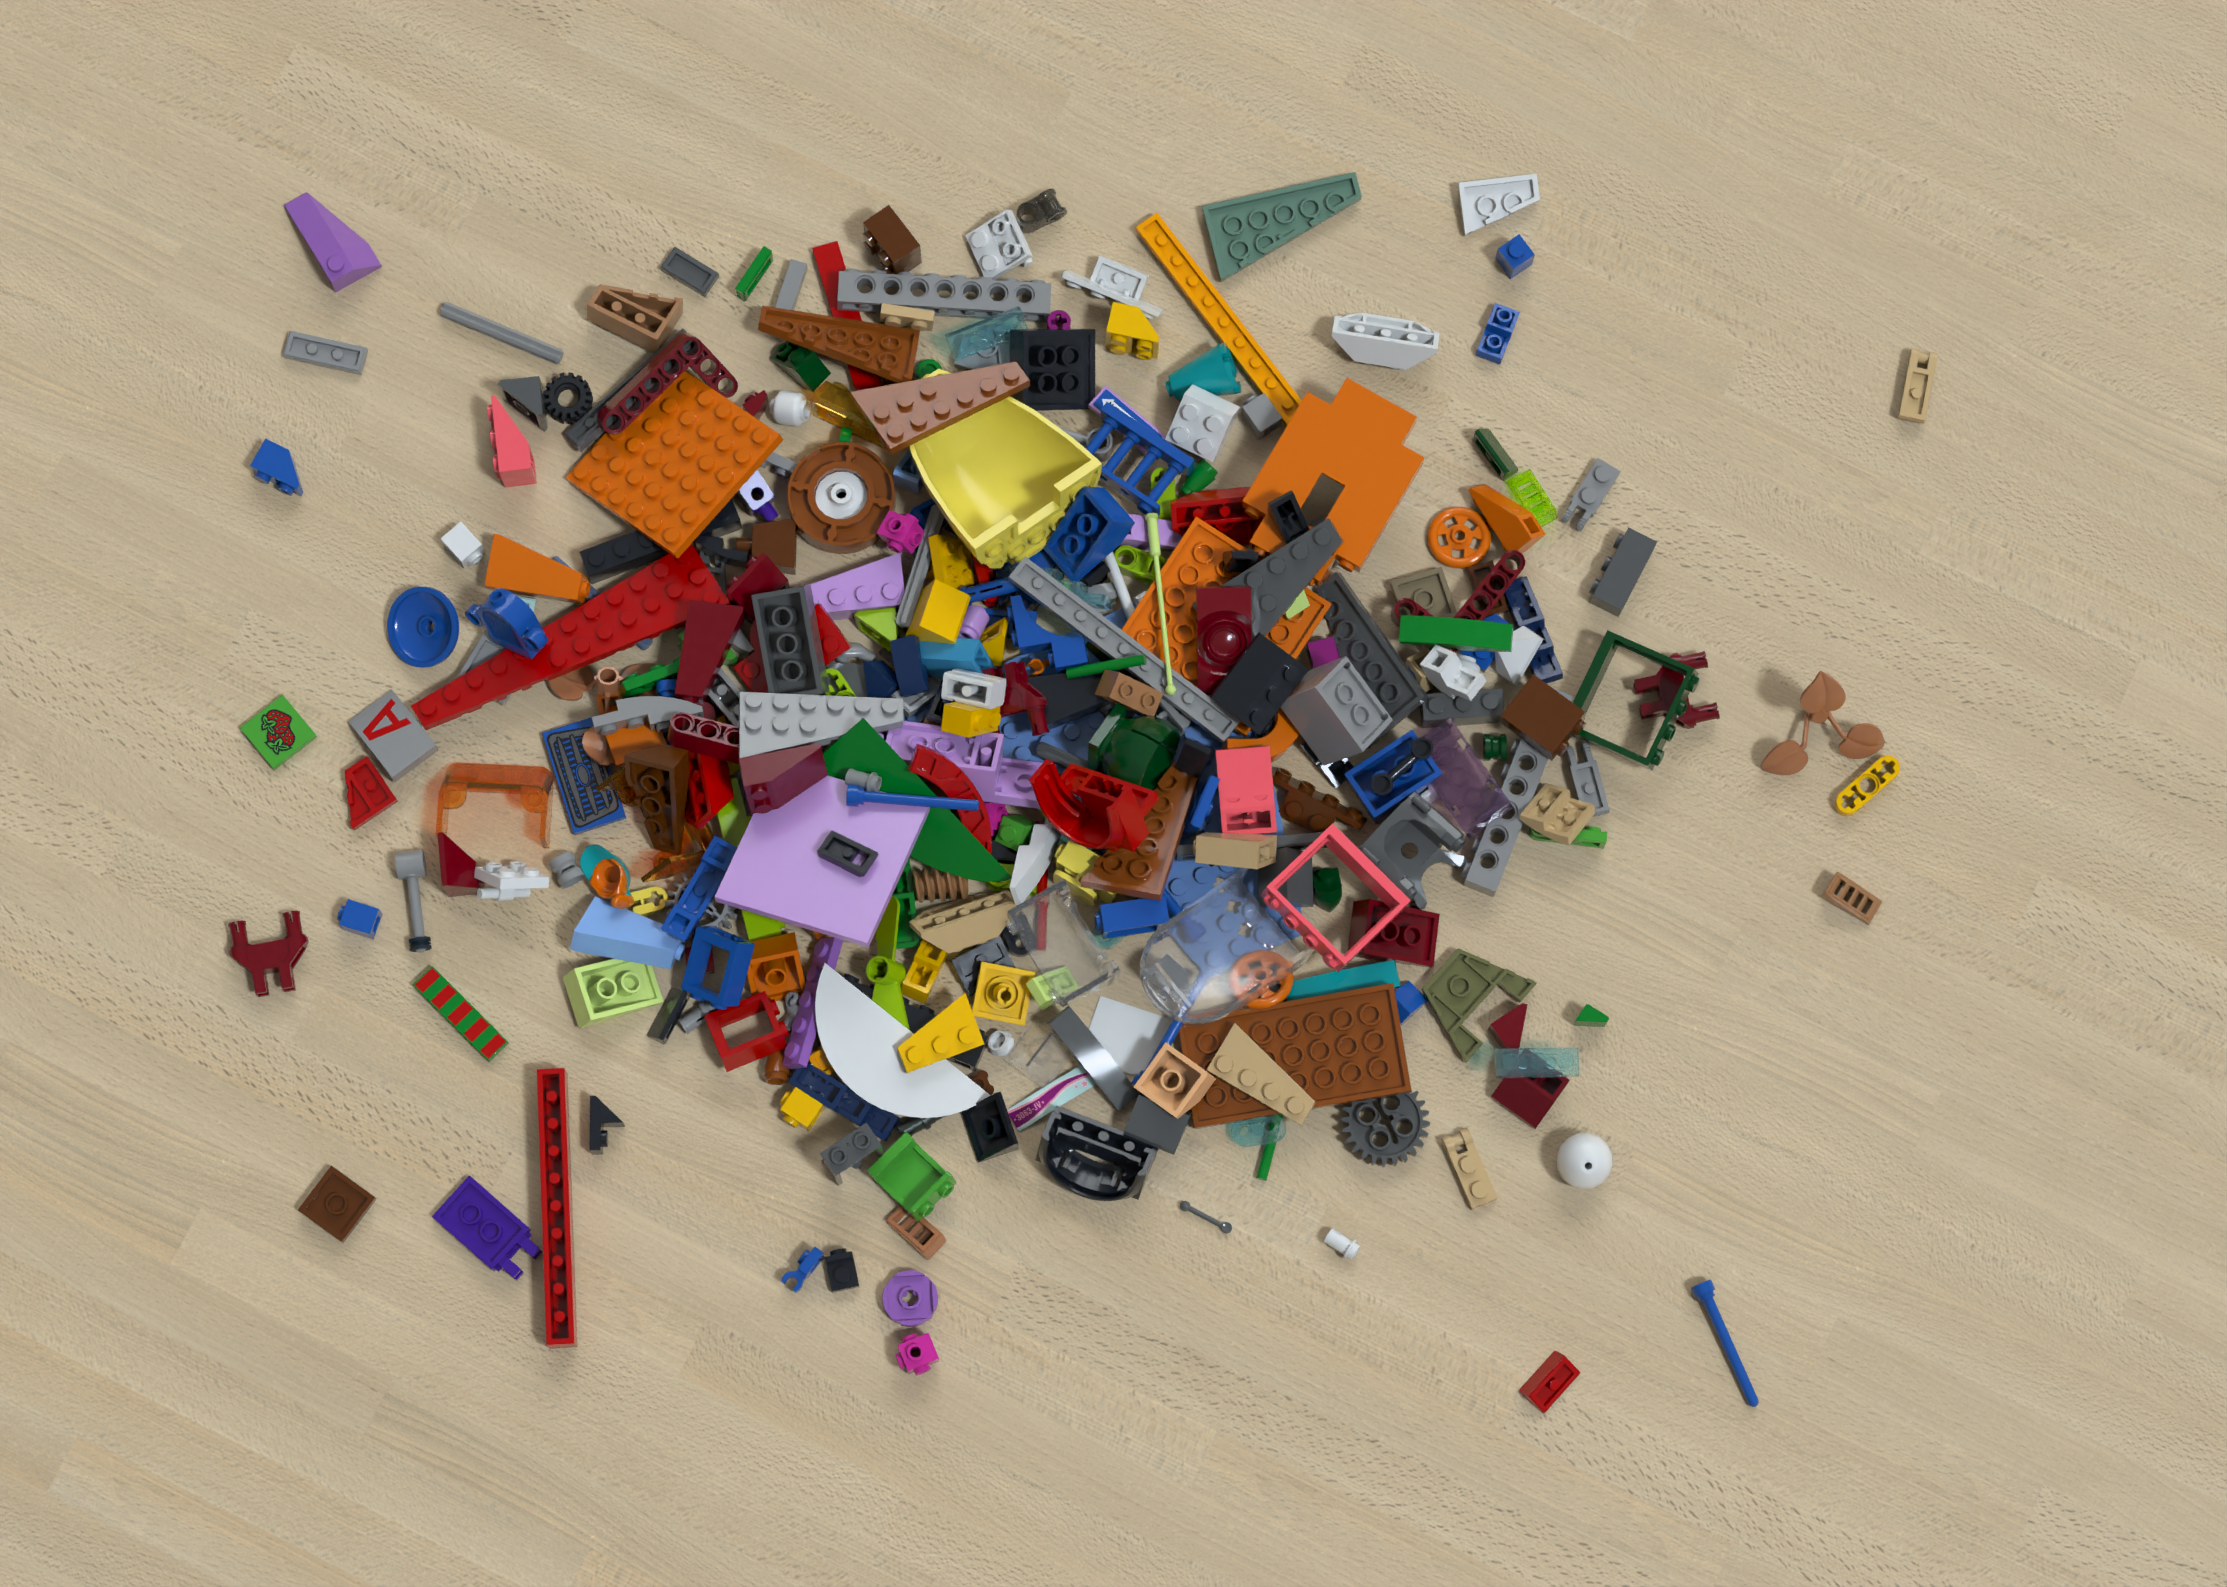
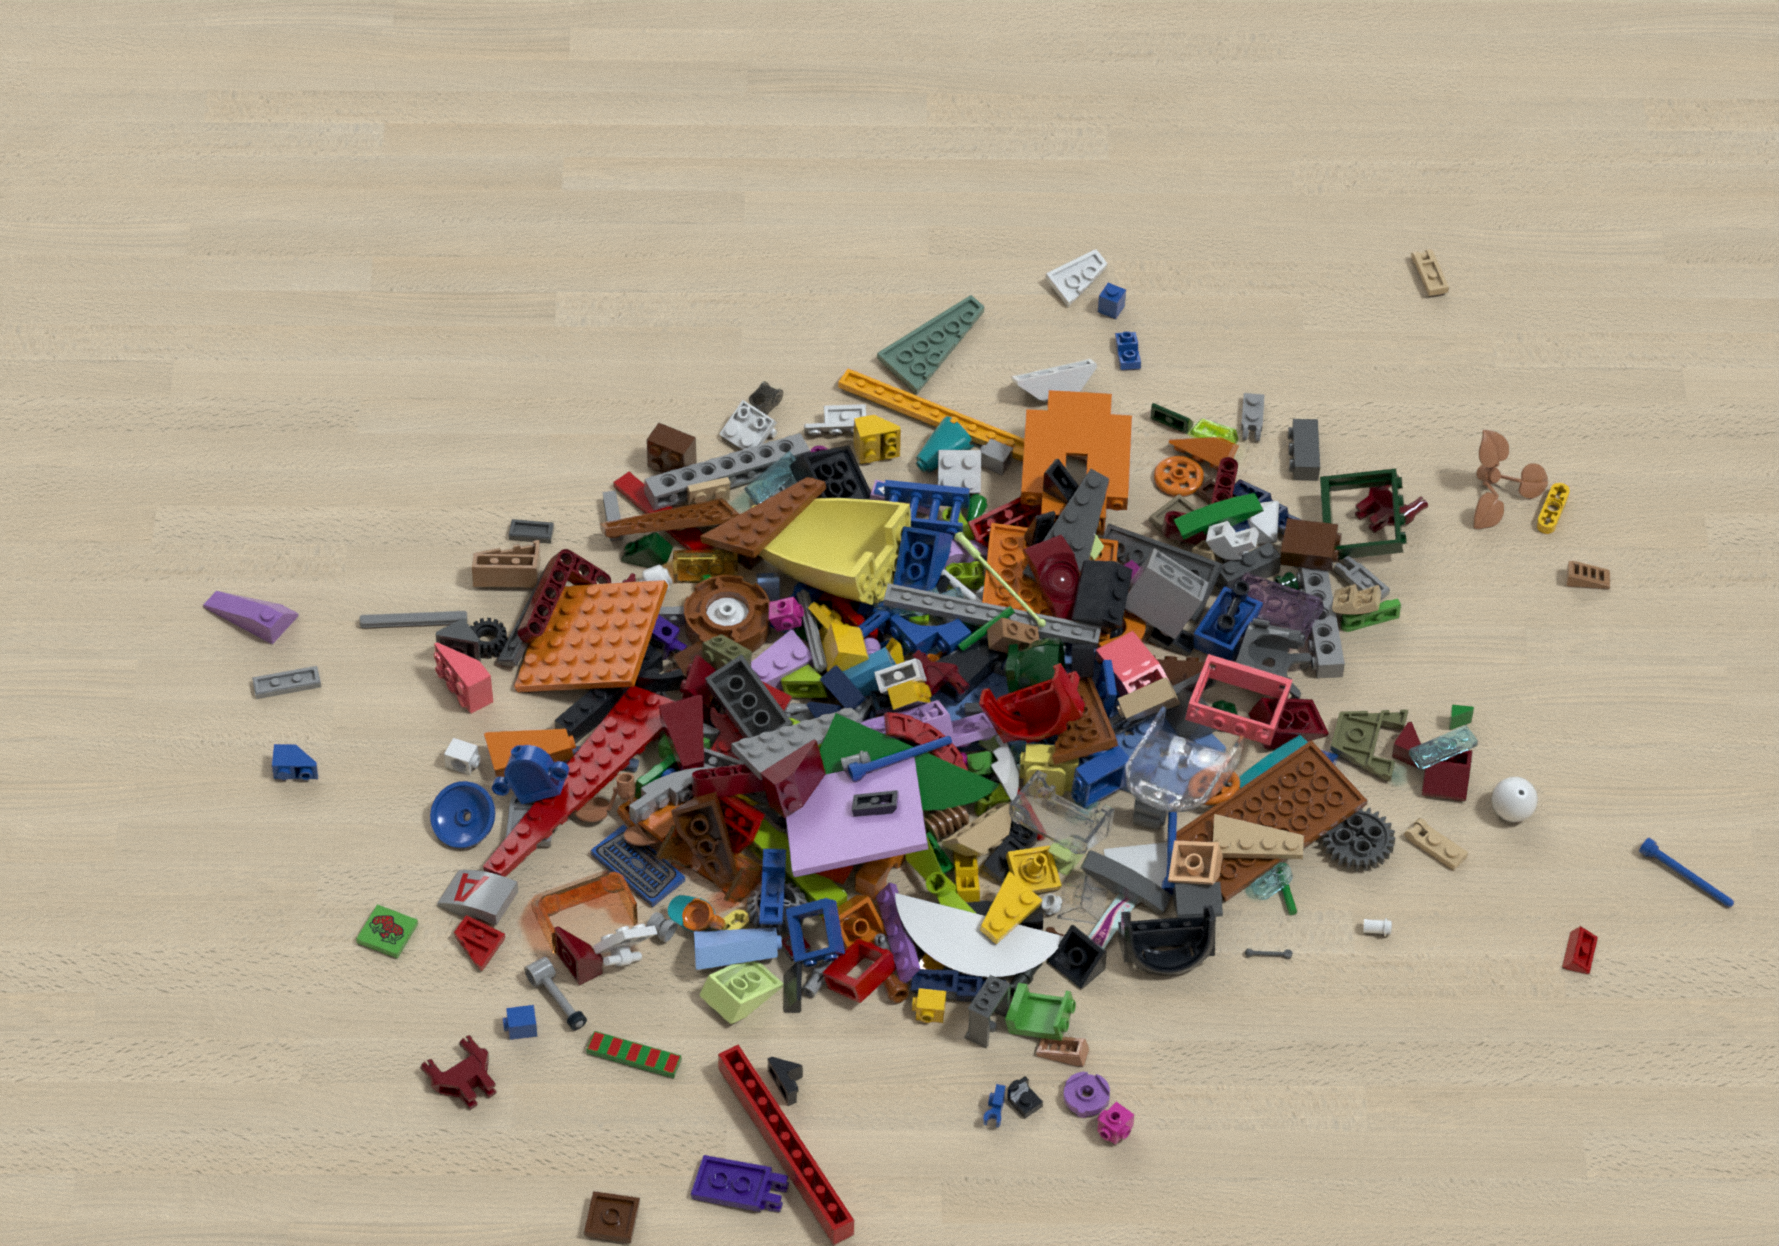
camera: 25 degrees left, 25 degrees down
(754, 274) = (580, 512): green tile -> none
(802, 561) = (722, 650): none -> olive brick

